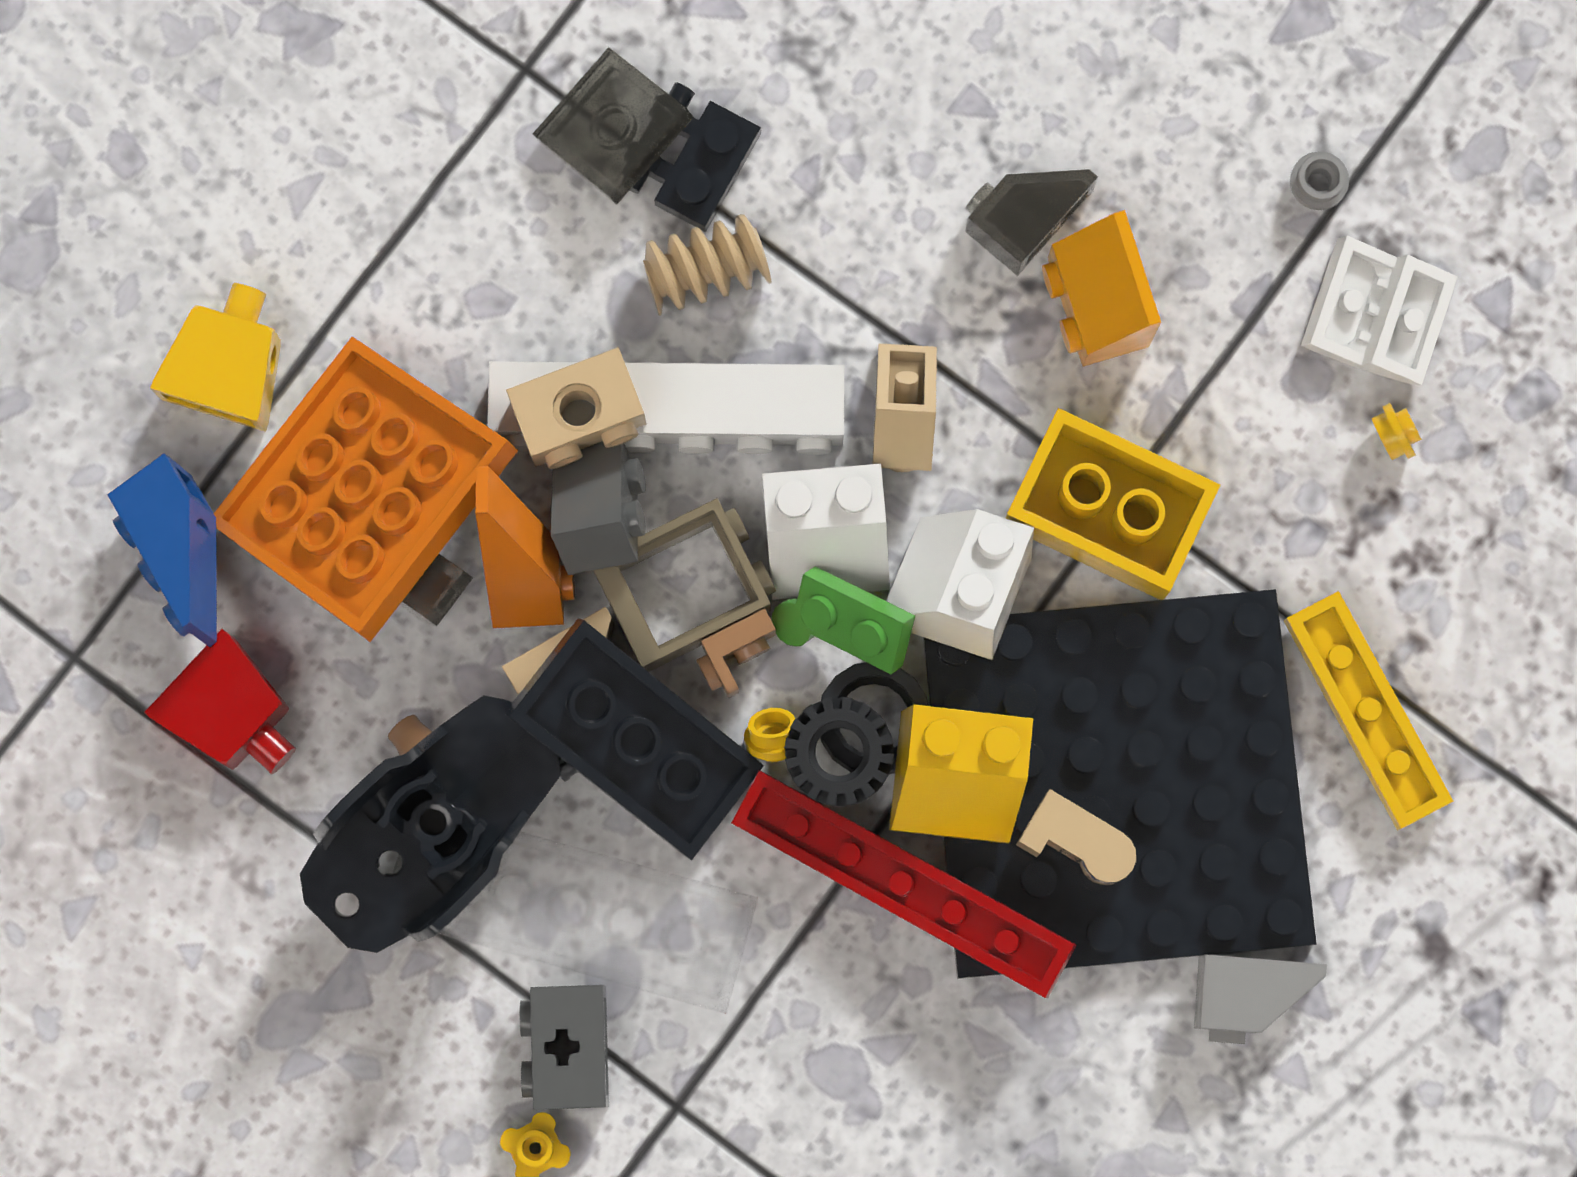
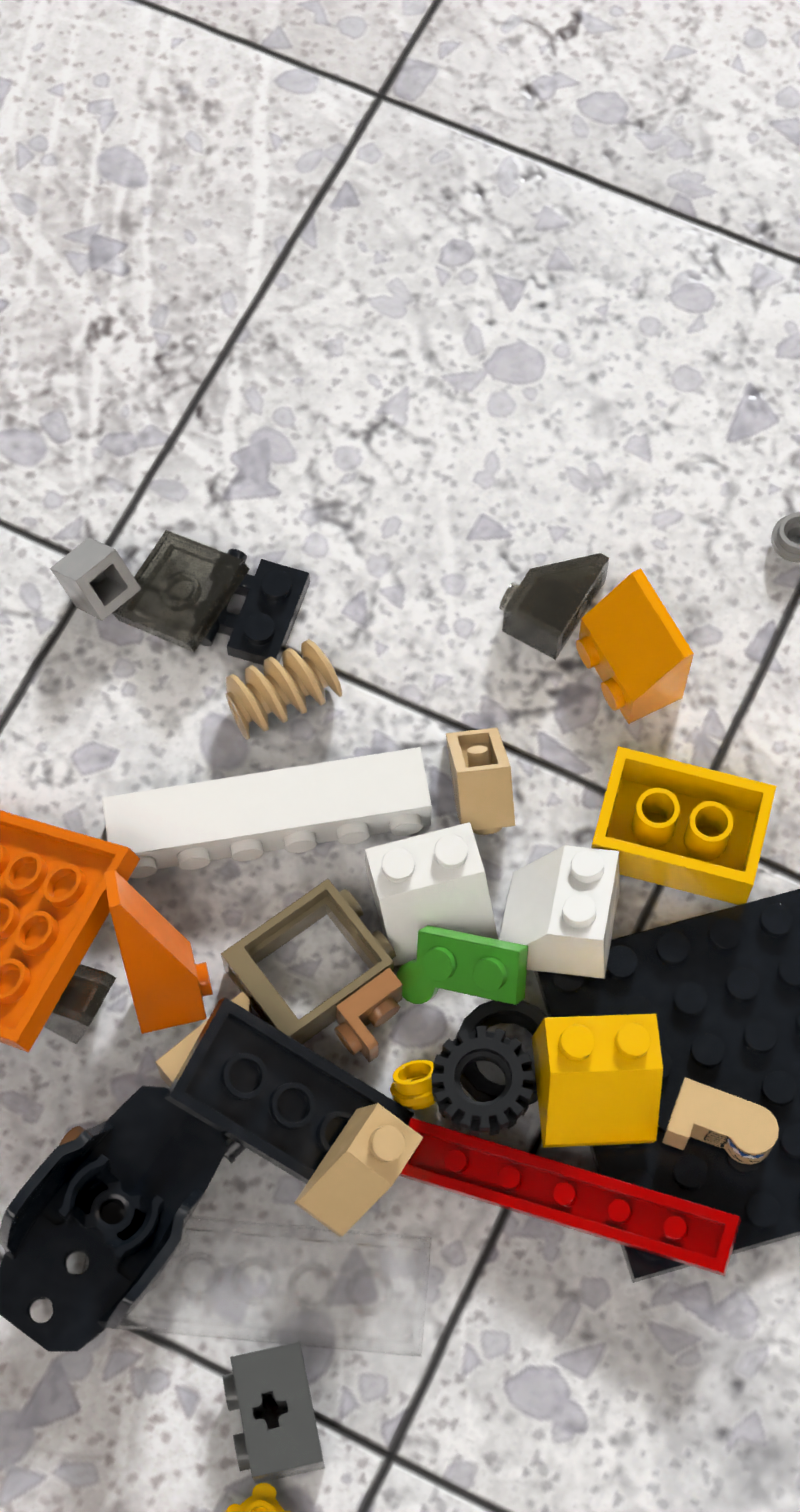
camera: 10 degrees left, 15 degrees down
(520, 96) = (95, 578): none -> light grey brick
(598, 380) = (201, 791): tan brick -> none
(598, 509) = (220, 903): dark grey brick -> none
(693, 819) = (358, 1168): none -> tan slope

